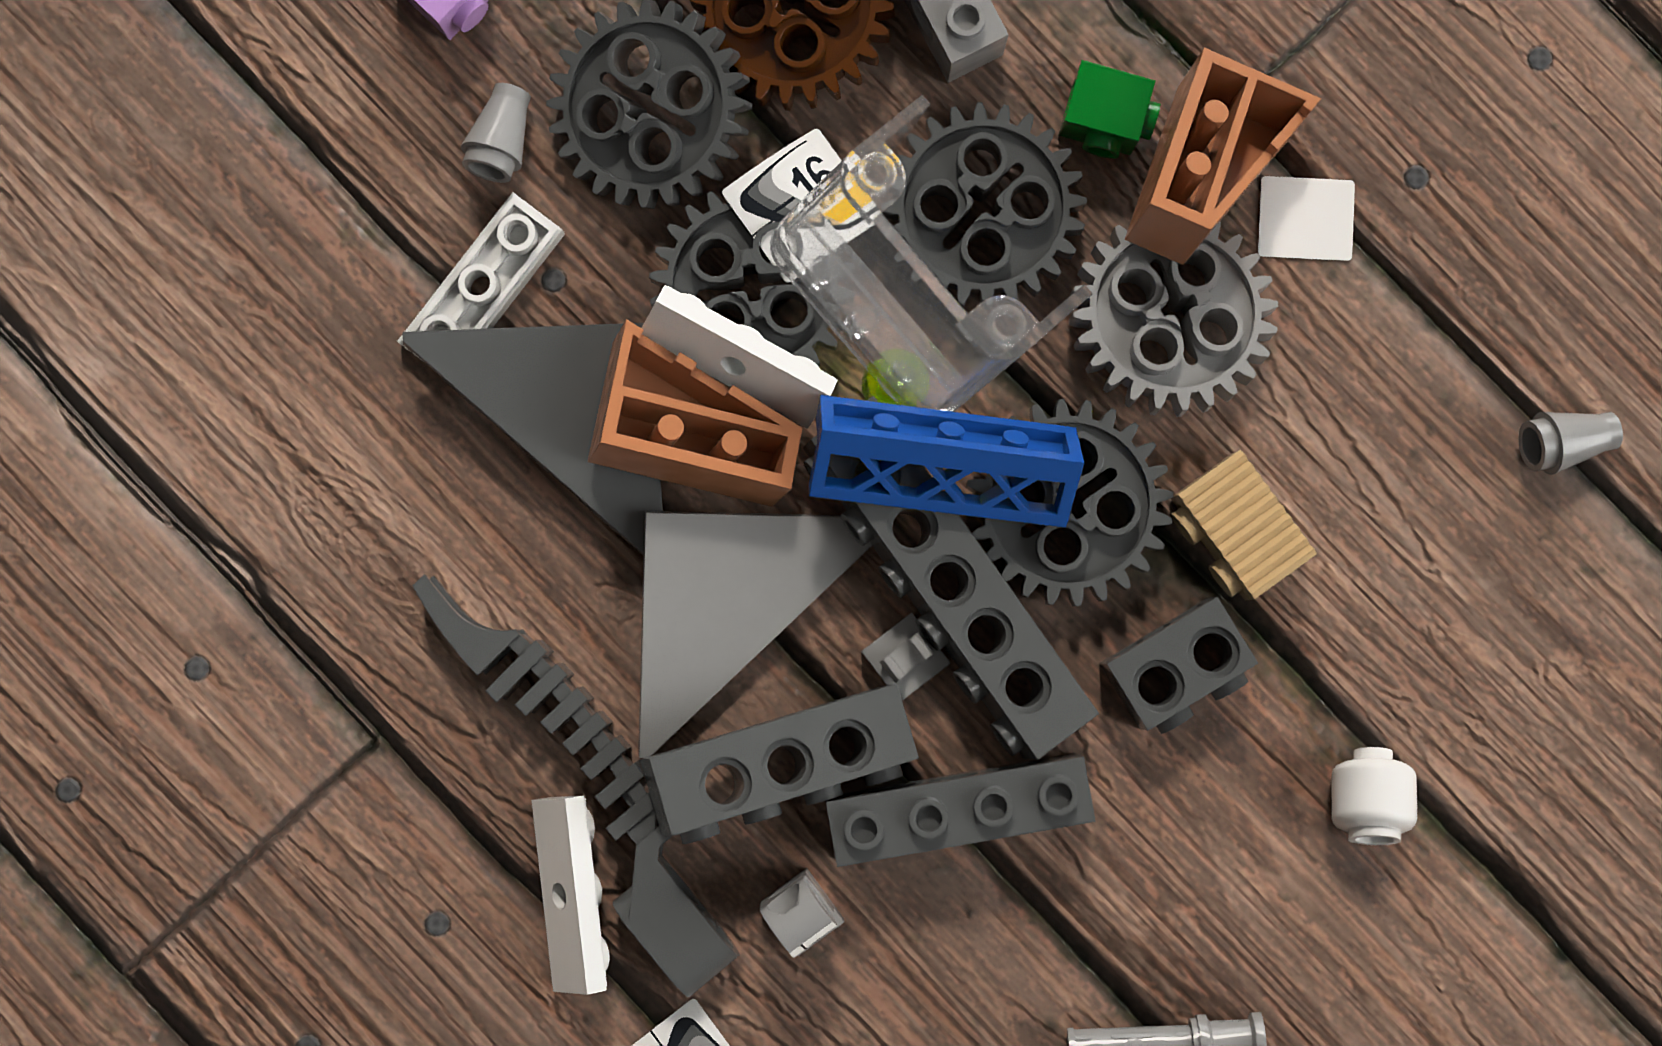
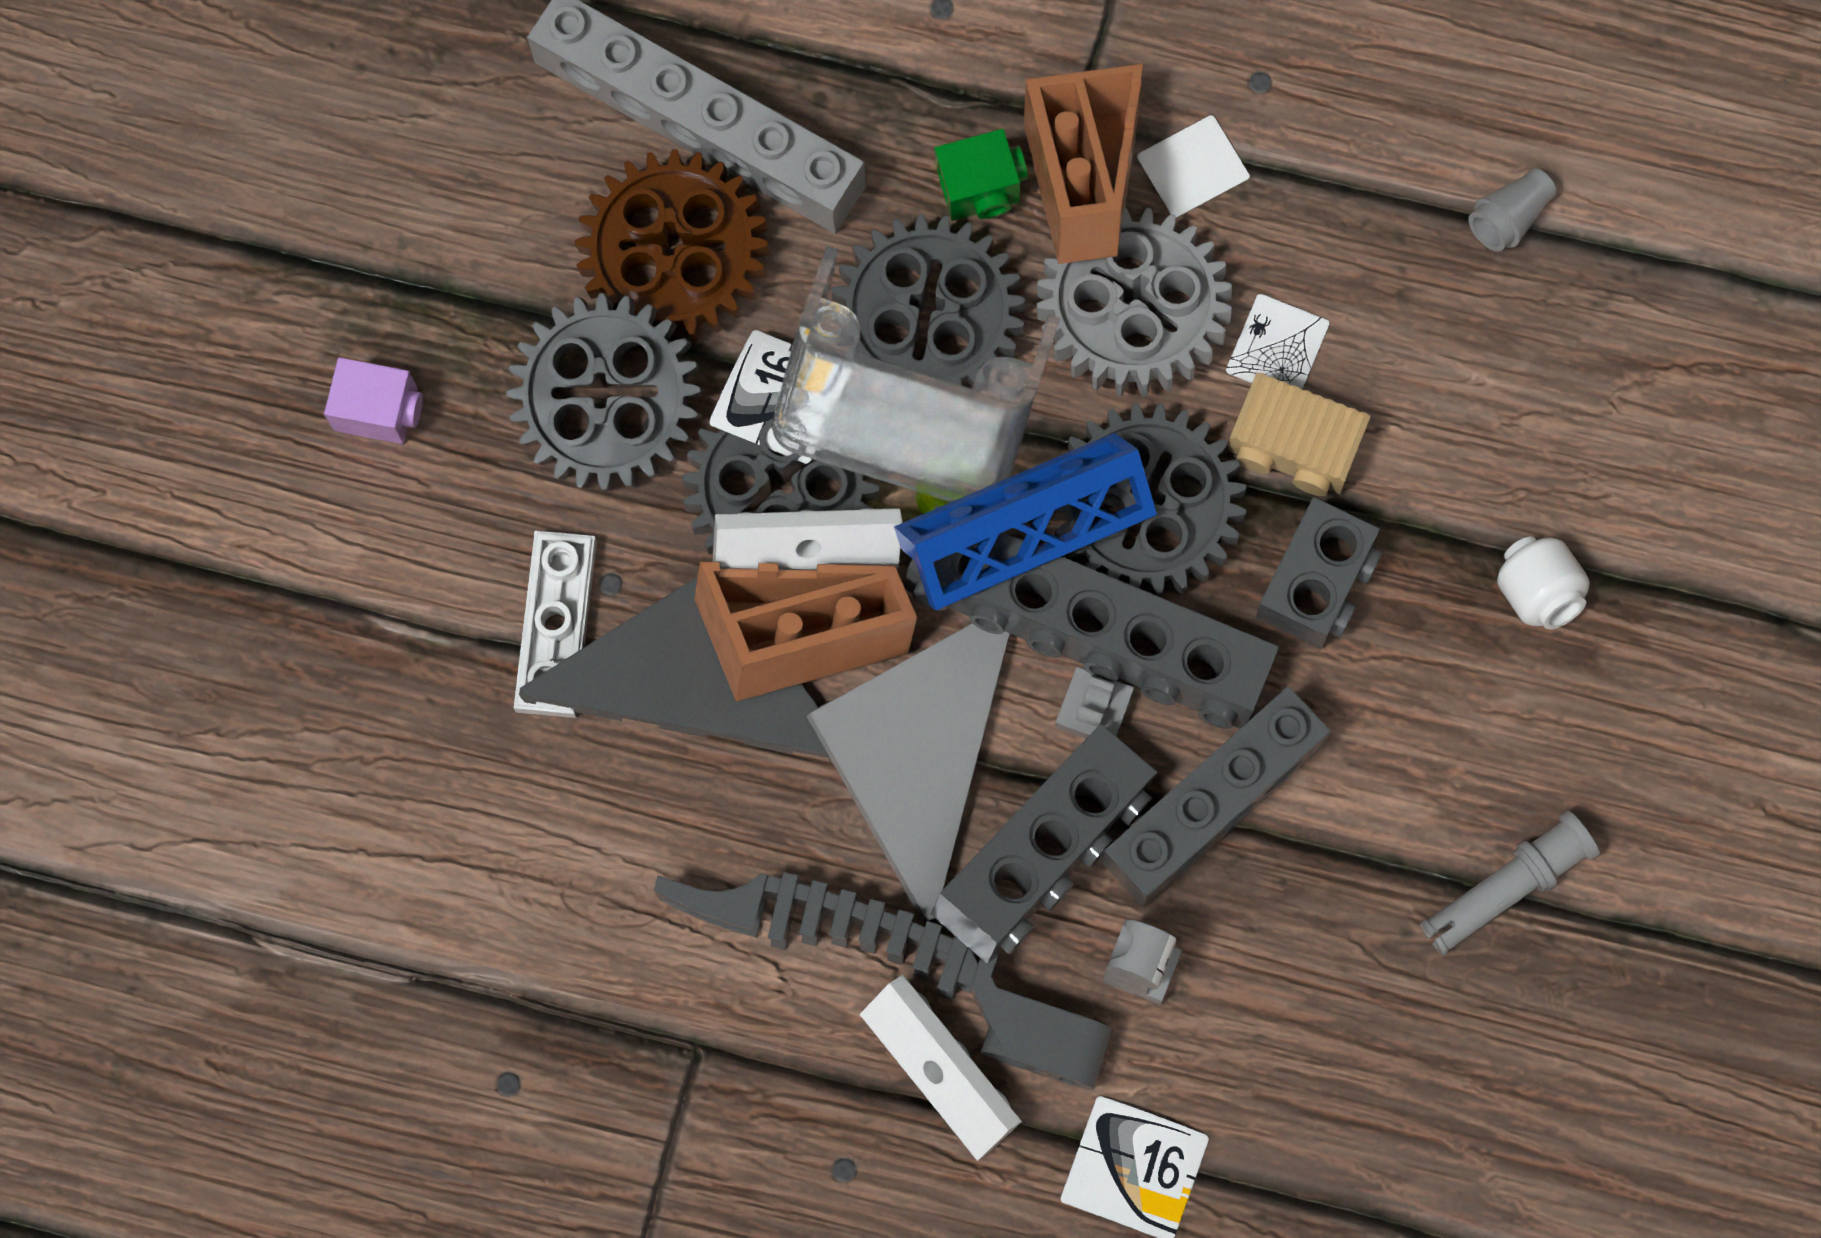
camera: 30 degrees left, 10 degrees down
(497, 137) = (495, 495): light grey cone -> none
(1277, 429) = (1277, 342): none -> white sticker

